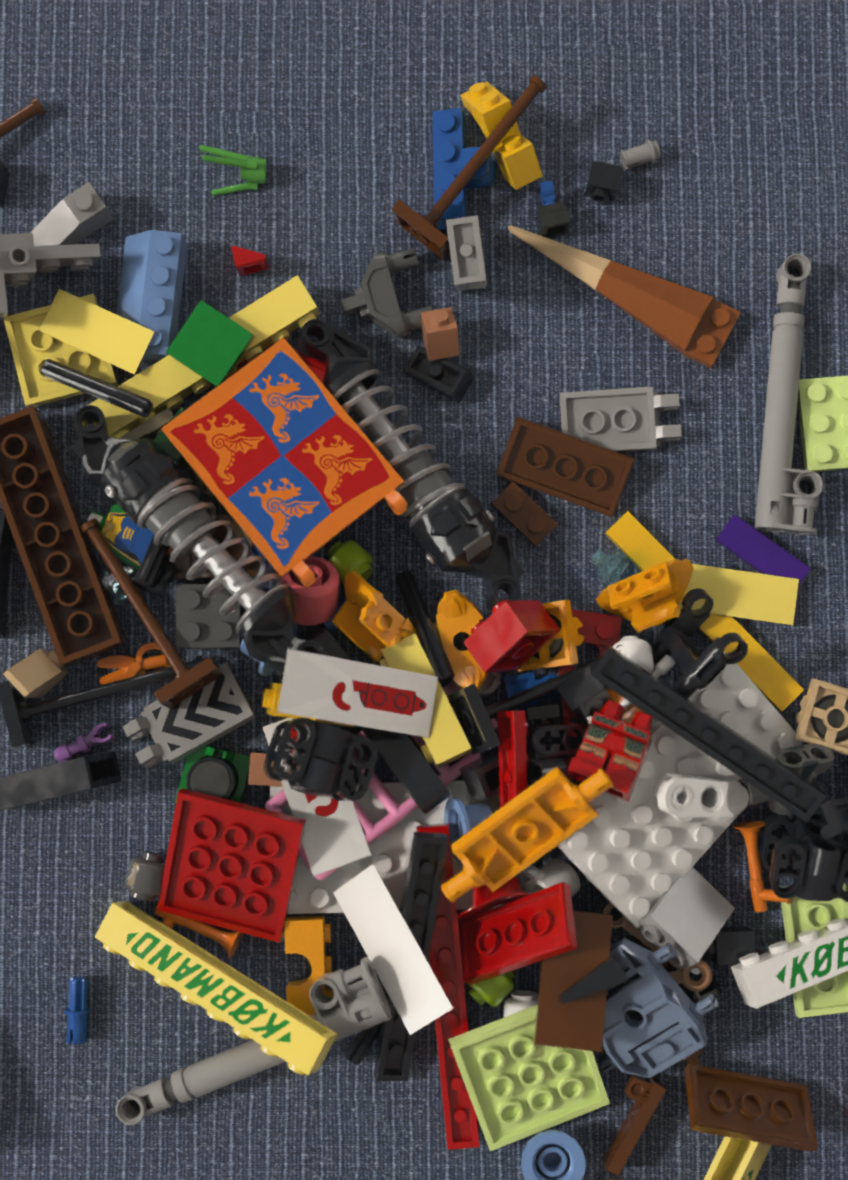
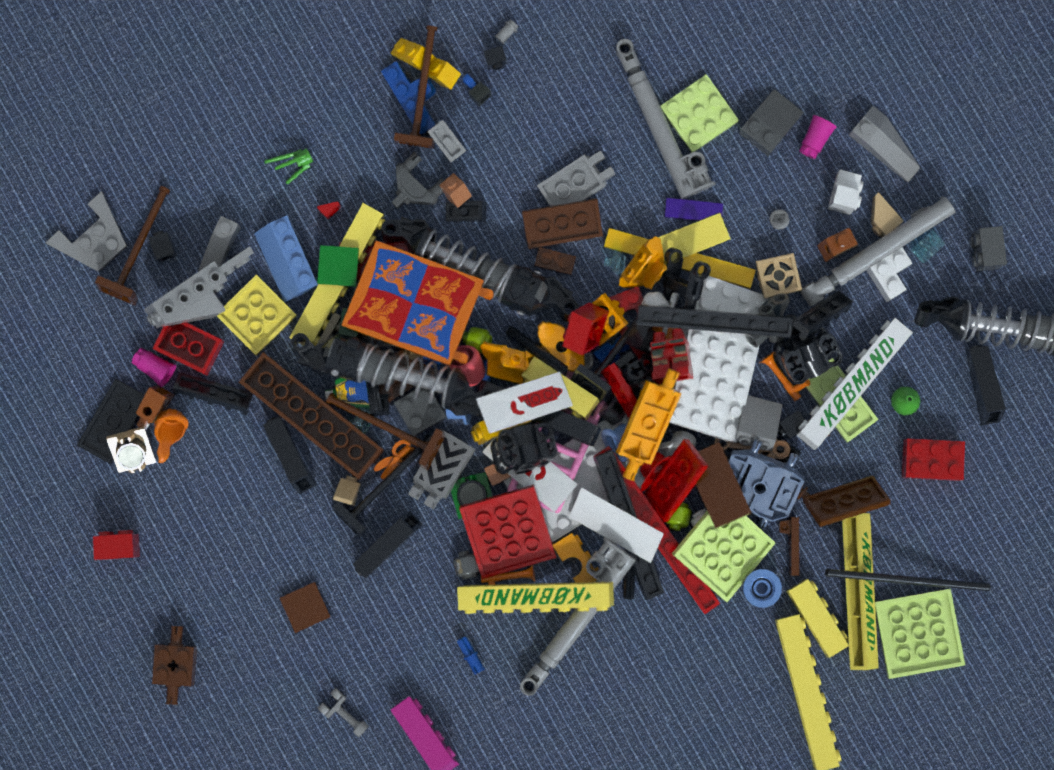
camera: 30 degrees left, 0 degrees up
(83, 743) = (391, 516): medium lavender piece -> none
(96, 331) = (272, 293): light yellow sticker -> none
(97, 388) = (290, 323): black axle -> none
(600, 978) = (730, 474): black slope -> none
(677, 314) = (575, 107): dark orange plate -> none
(722, 797) = (741, 349): white piece -> none

